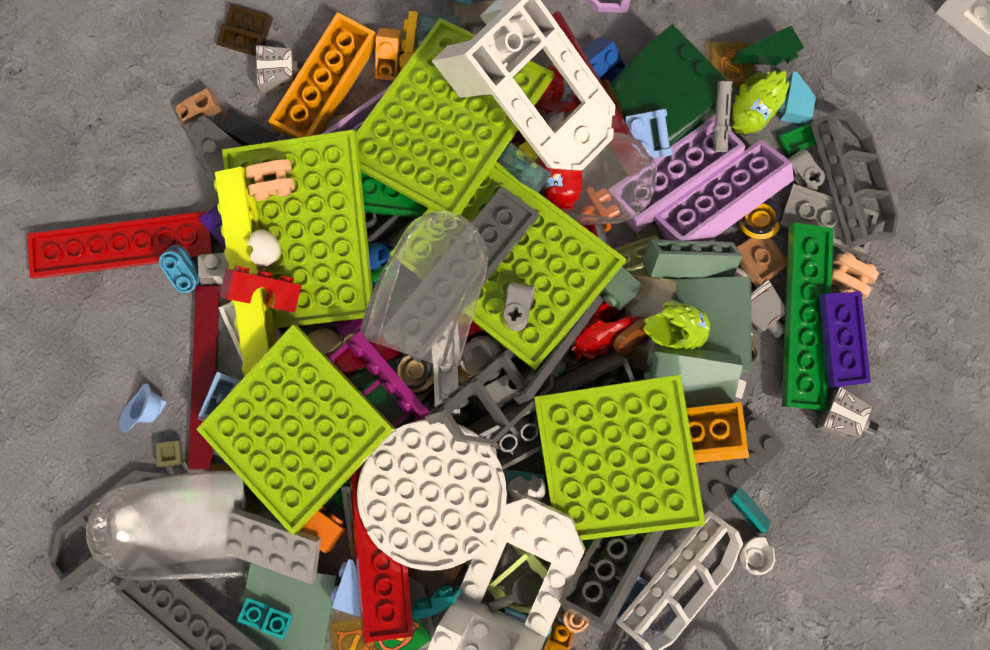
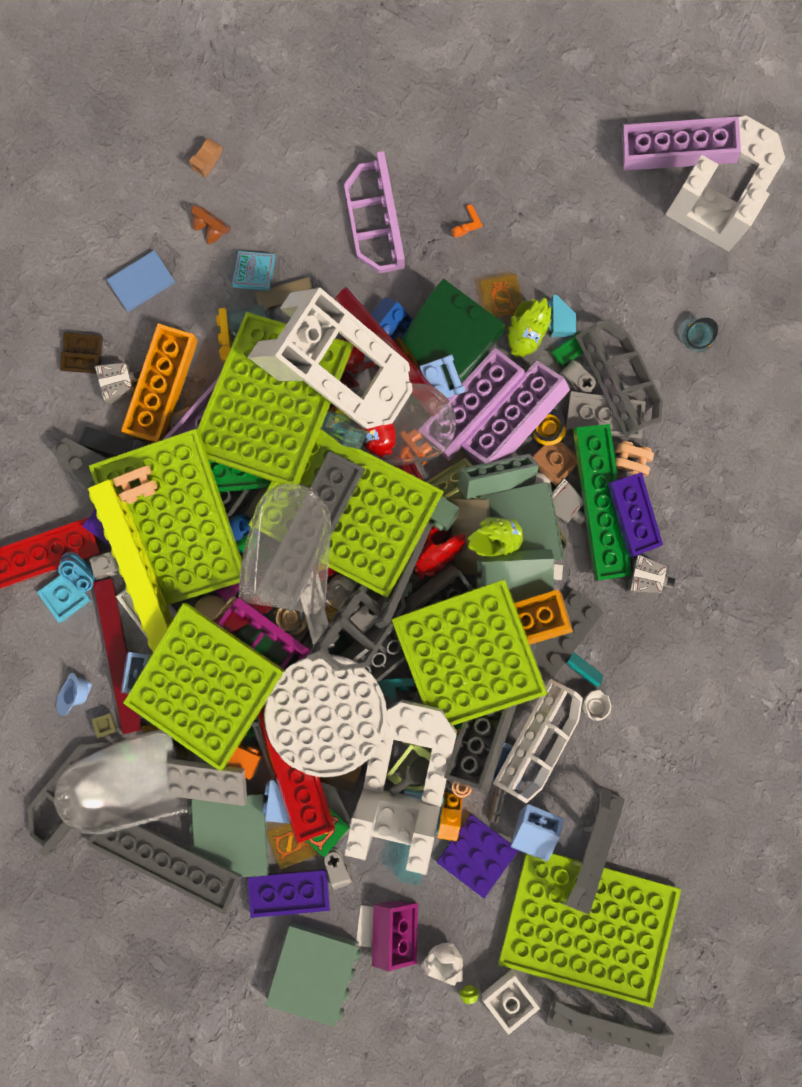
camera: 15 degrees left, 5 degrees up
(157, 297) = (62, 598): none -> medium azure tile
(200, 104) = (58, 429): medium nougat leg -> none
(240, 286) = (133, 578): red arch -> none
(265, 248) = (144, 541): white hair -> none
(265, 617) = (213, 839): teal slope -> none
(387, 53) = (208, 348): light orange slope -> none
(442, 599) = (350, 797): teal slope -> none
(518, 301) = (363, 545): light grey piece -> none
(520, 487) = (404, 692): white hair -> none
(630, 338) = (459, 553): dark orange tile -> none
(722, 127) = (501, 360): light grey pin -> none
(772, 50) = (532, 279): dark green slope -> none
(956, 151) = (700, 334): none -> clear light blue piece

